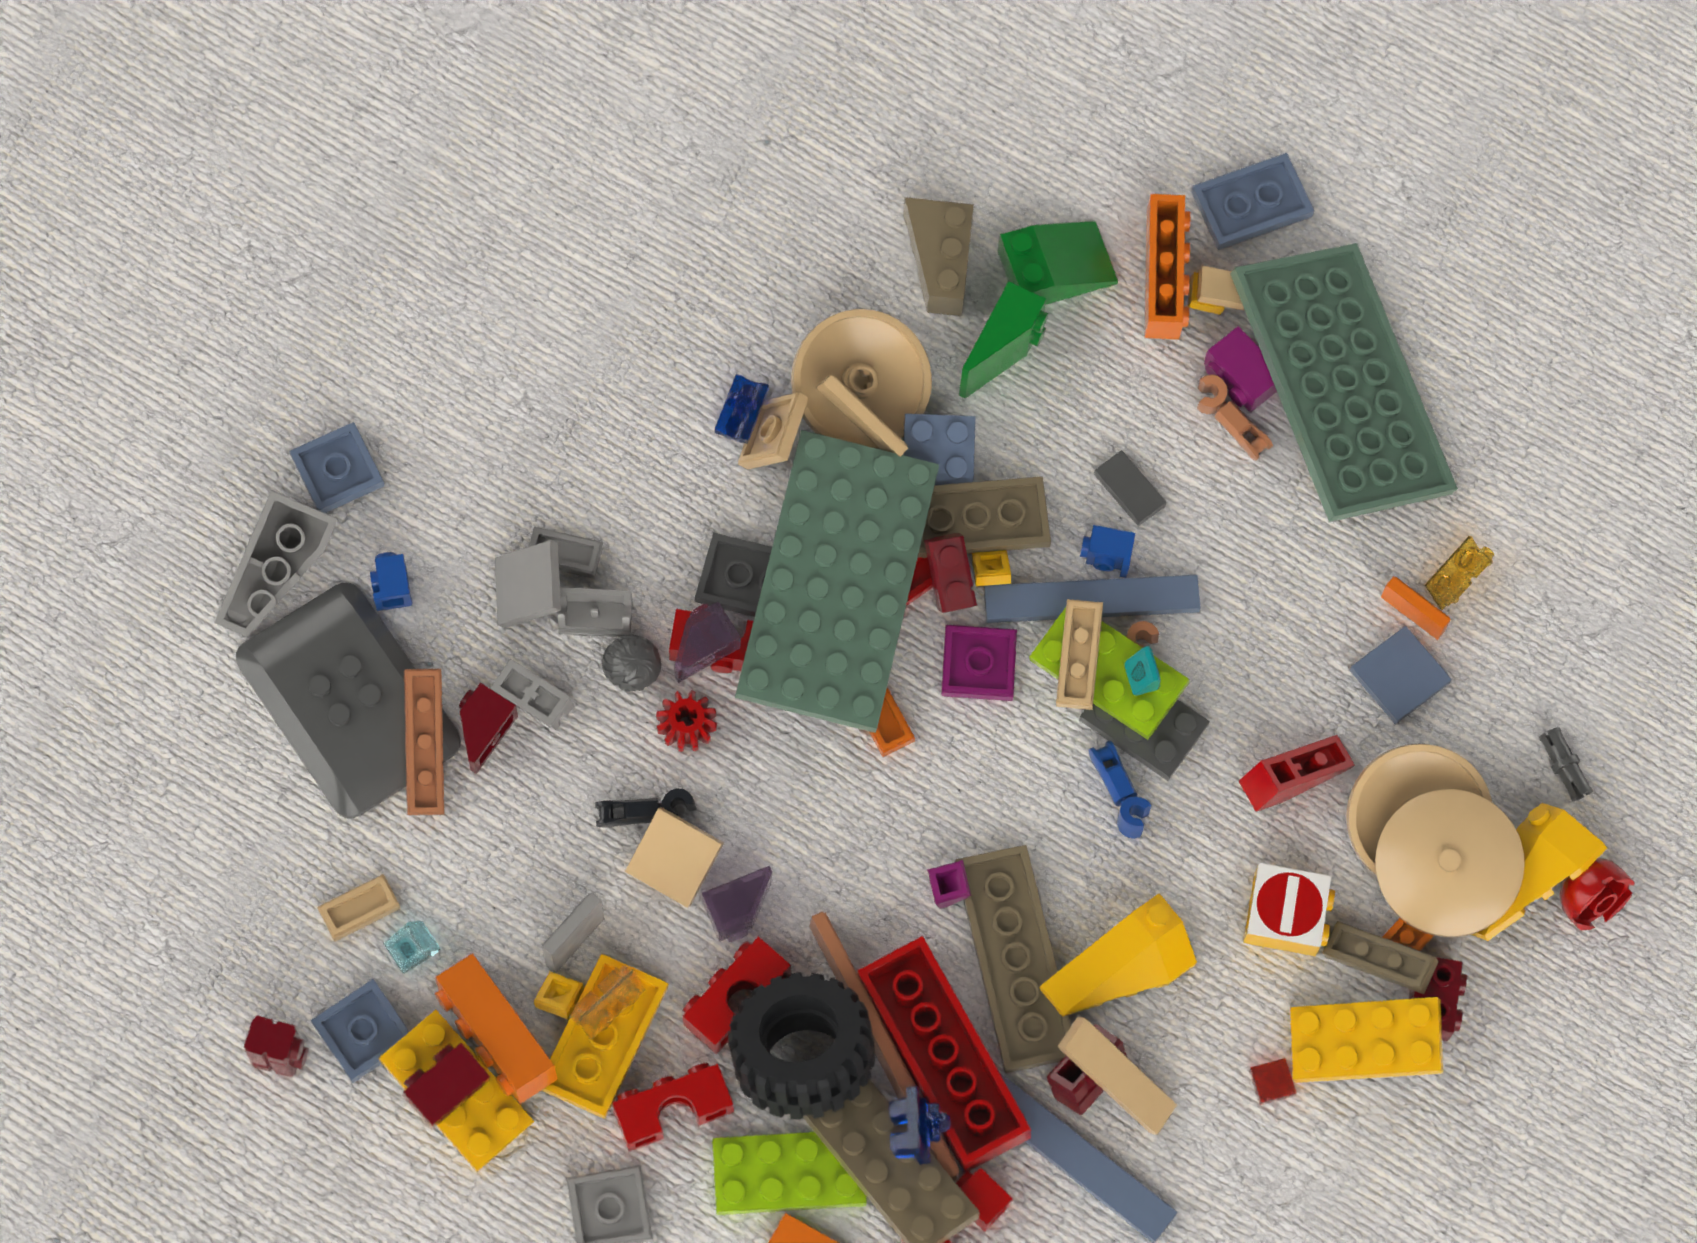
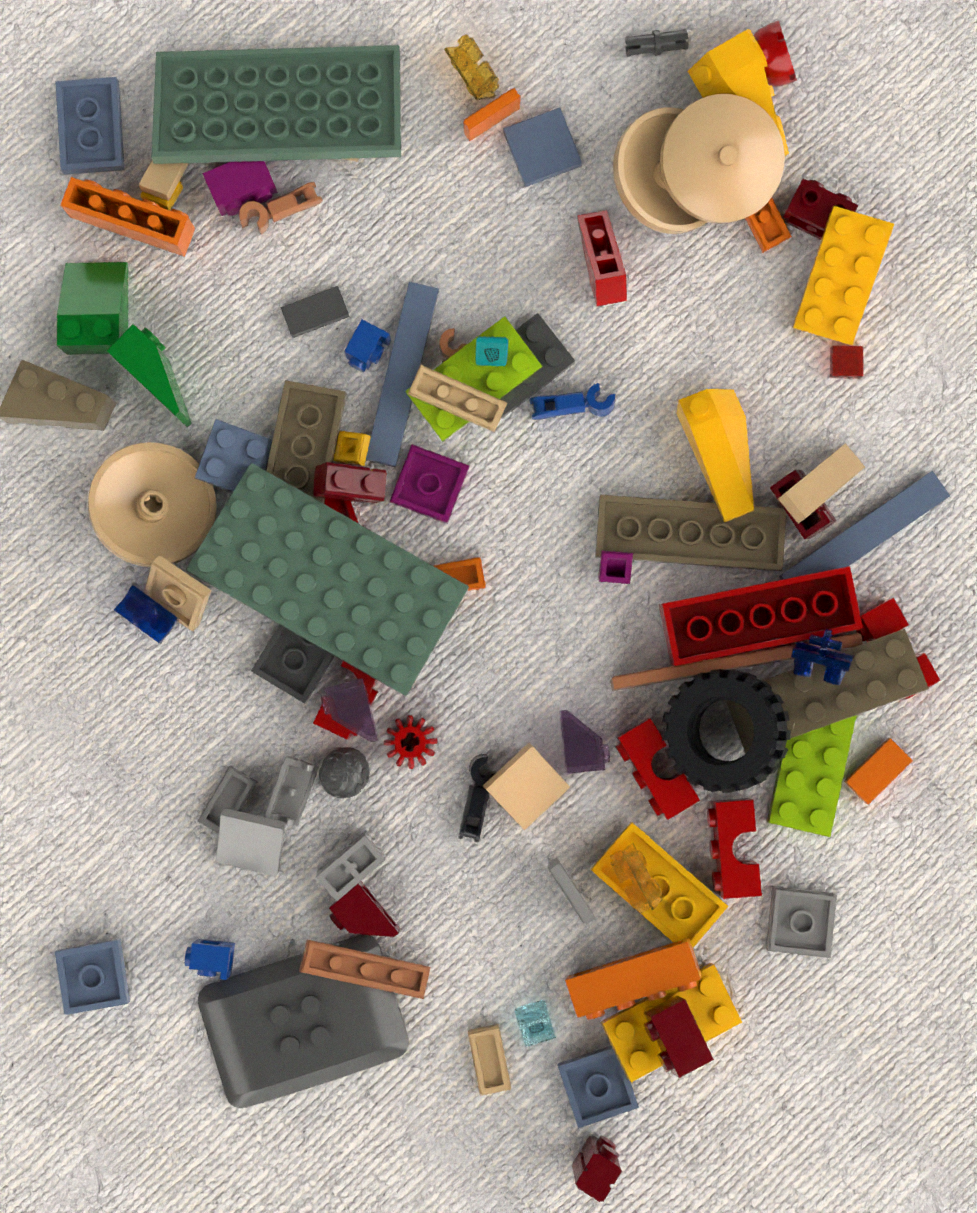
camera: 70 degrees left, 15 degrees up
(278, 554) = (155, 1048): light grey wedge -> none
(558, 995) = (614, 914): yellow tile -> none
(861, 415) = (188, 514): tan tile -> none
(1289, 909) = (715, 302): piece -> none
(1380, 957) = (778, 242): dark tan tile -> none

